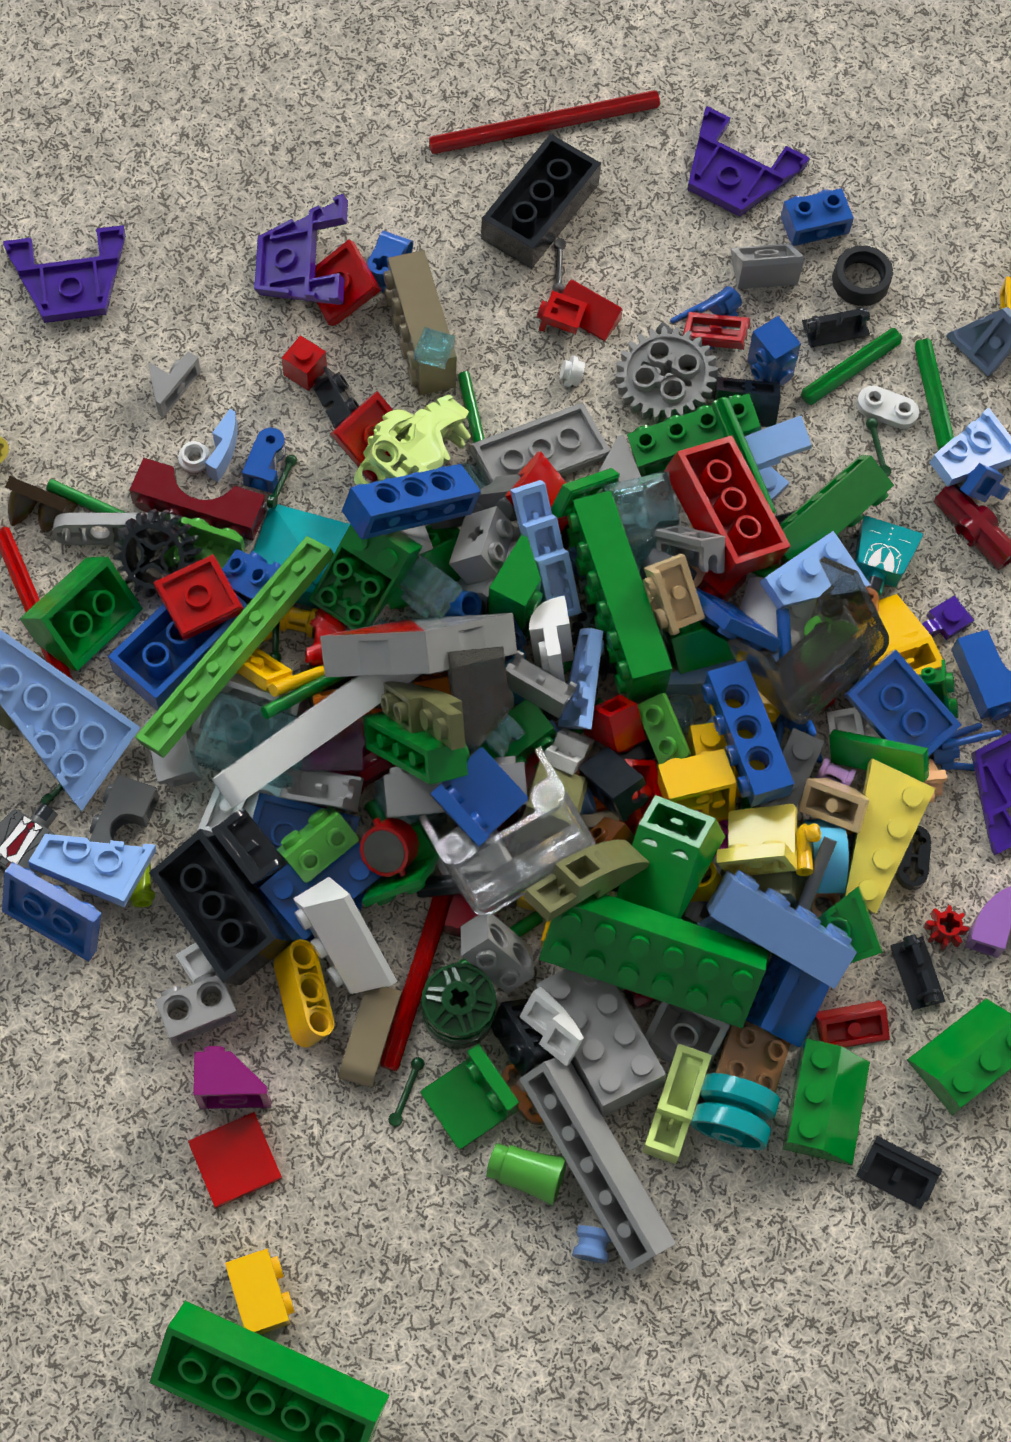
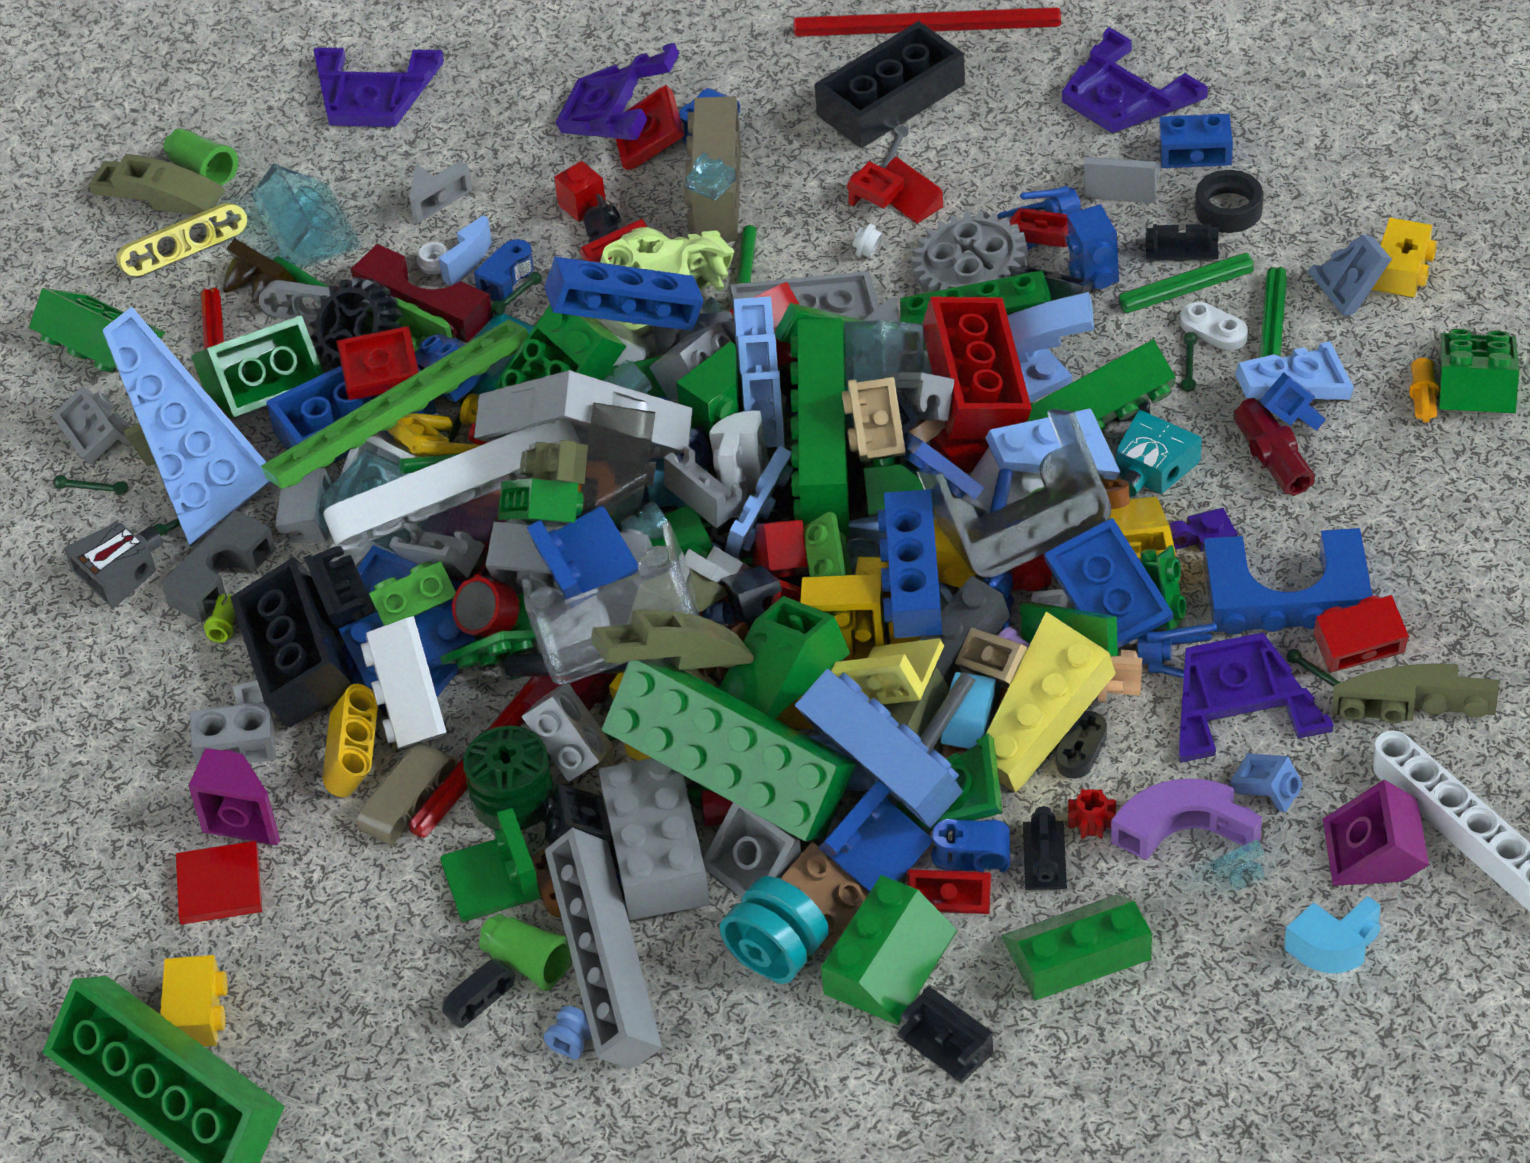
camera: 25 degrees right, 20 degrees down
(51, 911) = (117, 616): blue plate -> none
(60, 434) = (303, 217): none -> clear light blue slope
(94, 867) = (175, 581): light blue wing -> none
(395, 1119) = (406, 880): dark green hinge -> none
(501, 1223) = (478, 992): none -> black beam
(551, 1020) = (598, 802): white slope -> none
(677, 1103) = (698, 941): yellowish green slope -> none
(731, 426) = (1007, 289): green axle -> none
(806, 835) = (939, 681): yellow arm -> none
(865, 980) = (973, 845): none -> blue piece

